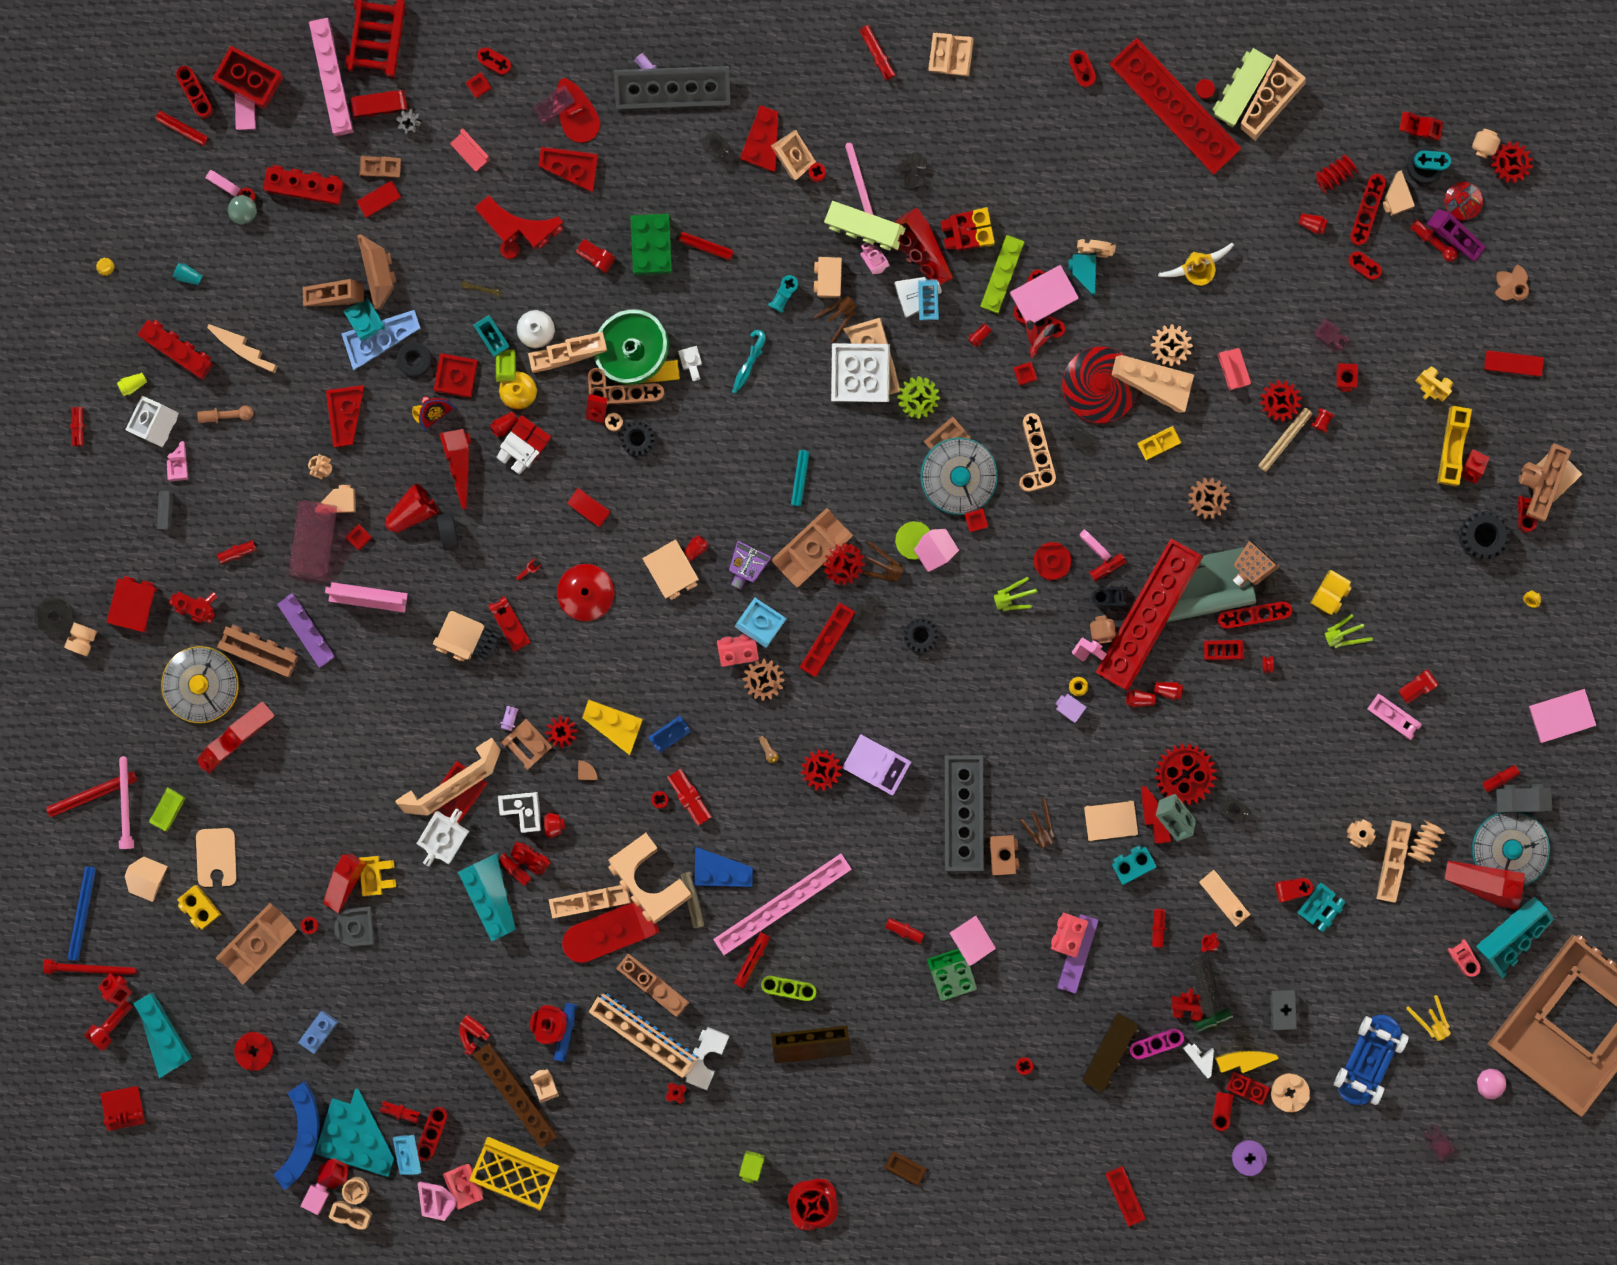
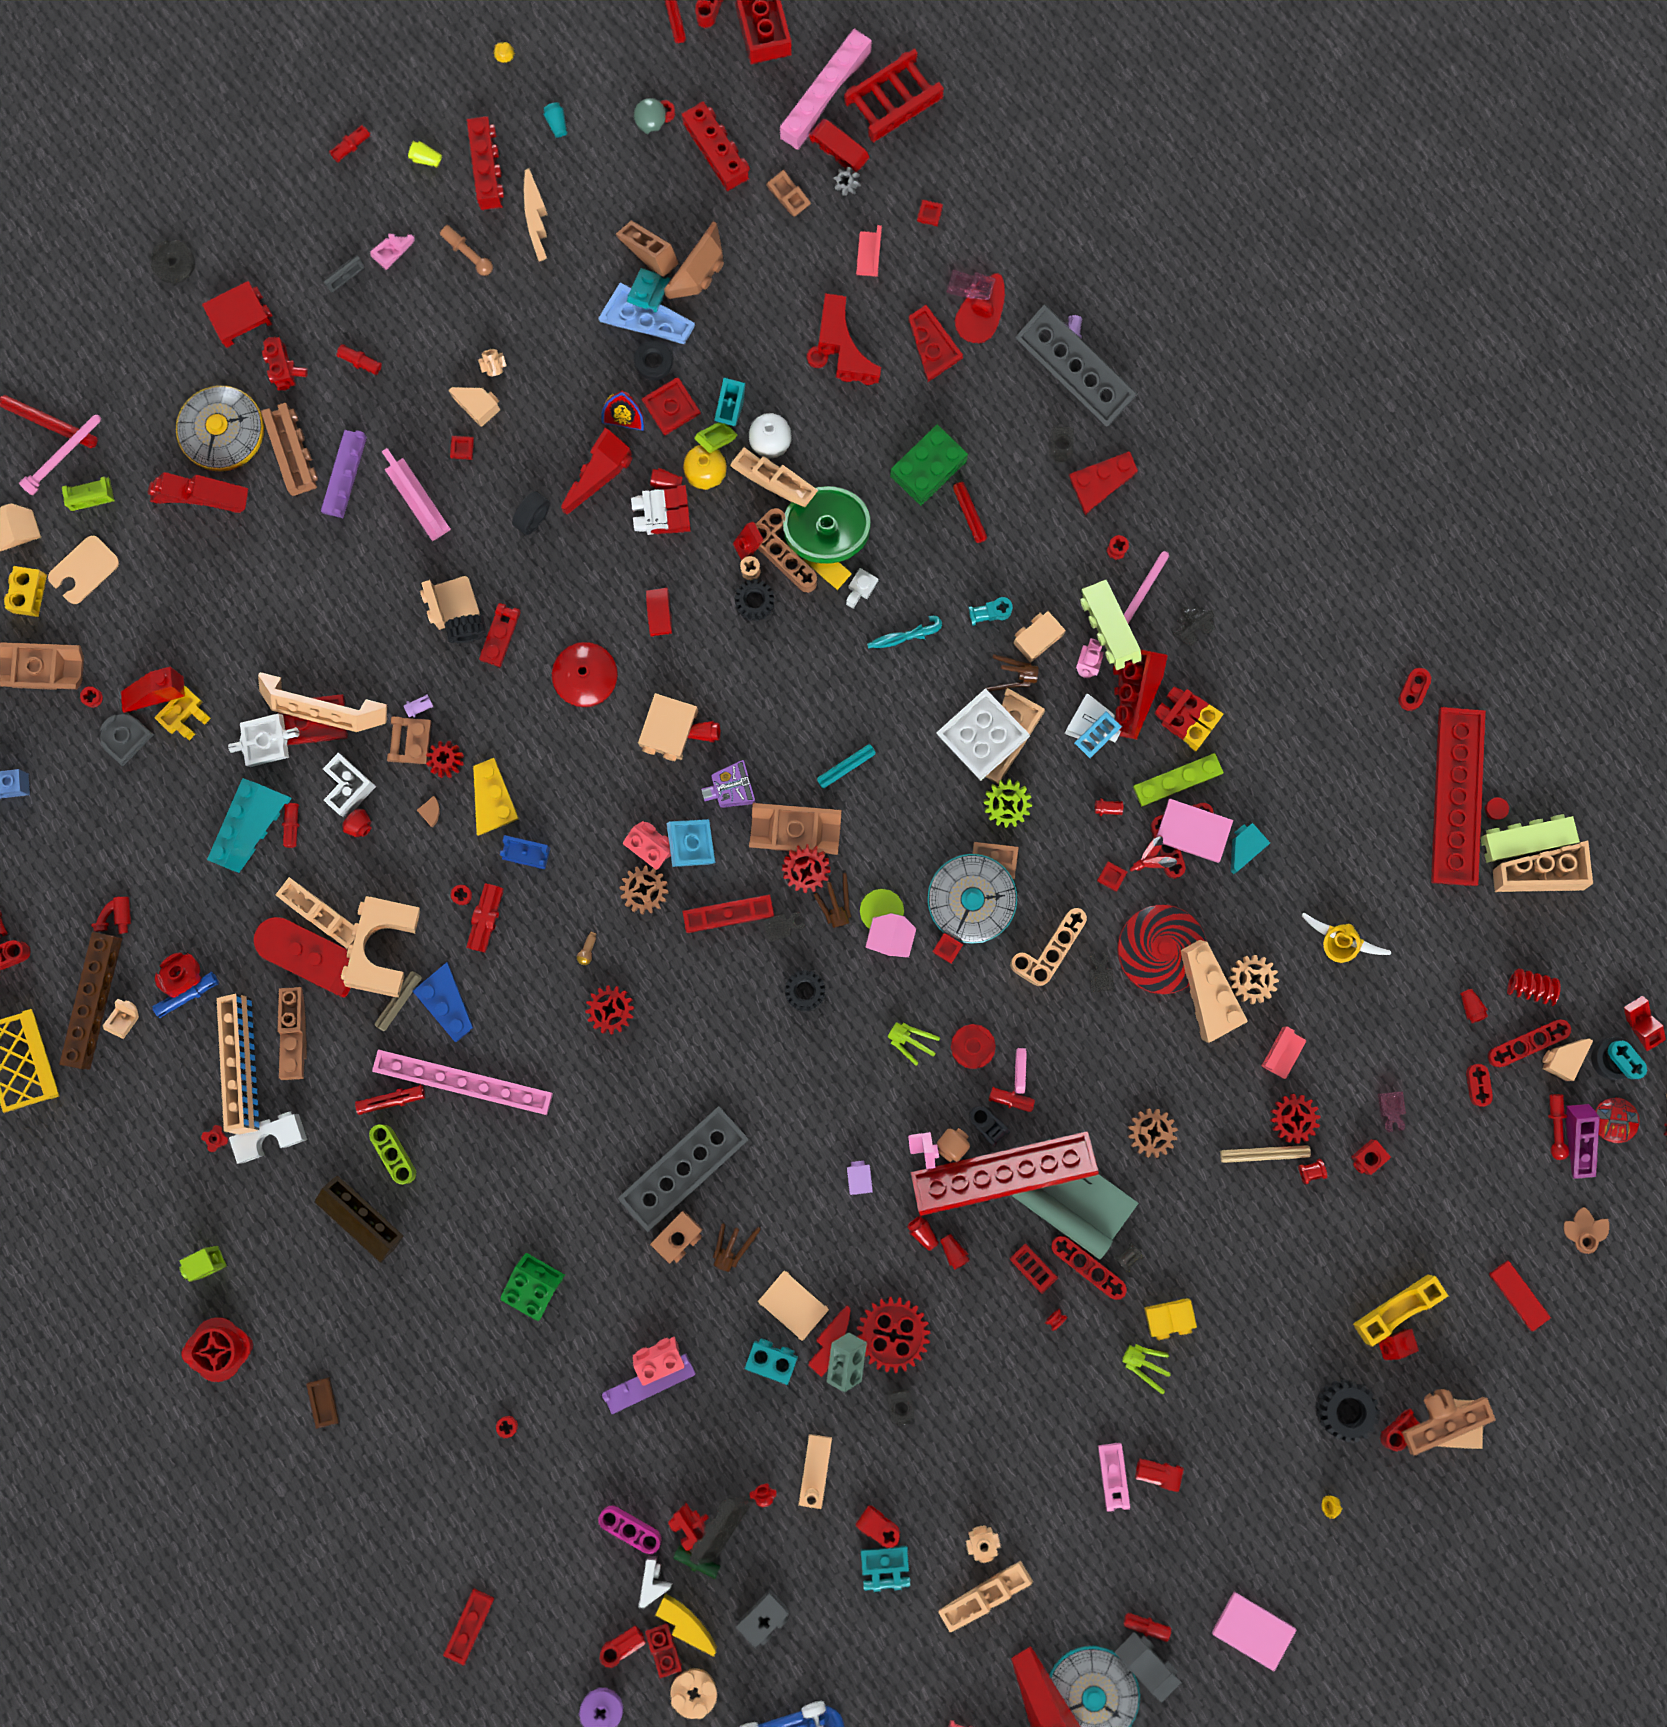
camera: 45 degrees right, 5 degrees down
(80, 639) = (170, 297): light nougat wheel -> none
(152, 421) = (407, 198): white slope -> none
(222, 183) = (658, 83): bright pink beam -> none
(244, 114) = (731, 51): bright pink tile -> none
(312, 540) = (423, 410): clear pink plate -> none
(343, 413) = (554, 344): red wing -> none
(379, 199) = (760, 215): red slope -> none
(411, 509) = (523, 467): red cone -> none
(496, 57) = (966, 206): red beam -> none
(496, 292) = (754, 348): clear yellow hinge -> none
(522, 854) = (308, 820): red hinge -> none
(530, 568) = (563, 609): red hand -> none
(598, 257) = (877, 432): red piece -> none
(793, 154) = (1114, 513): light nougat slope -> none
(876, 764) = (657, 1054): lavender slope -> none
(877, 53) = (1262, 514): red pin -> none
(904, 930) = (533, 1210): red pin -> none
(951, 54) = (1321, 570): light nougat slope -> none
(972, 940) = (576, 1279): bright pink tile -> none
(1083, 682) = (892, 1168): yellow plate -> none
(1102, 248) = (1277, 837): light nougat plate -> none
(1110, 1052) = (585, 1494): dark brown brick -> none
(1158, 928) = (735, 1436): red axle -> none
(1159, 443) = (1160, 1046): yellow slope -> none
(1253, 565) = (1132, 1226): nougat torso -> none
(1426, 842) = (1028, 1611): light nougat piece -> none
(1432, 386) = (1433, 1242): yellow hips -> none

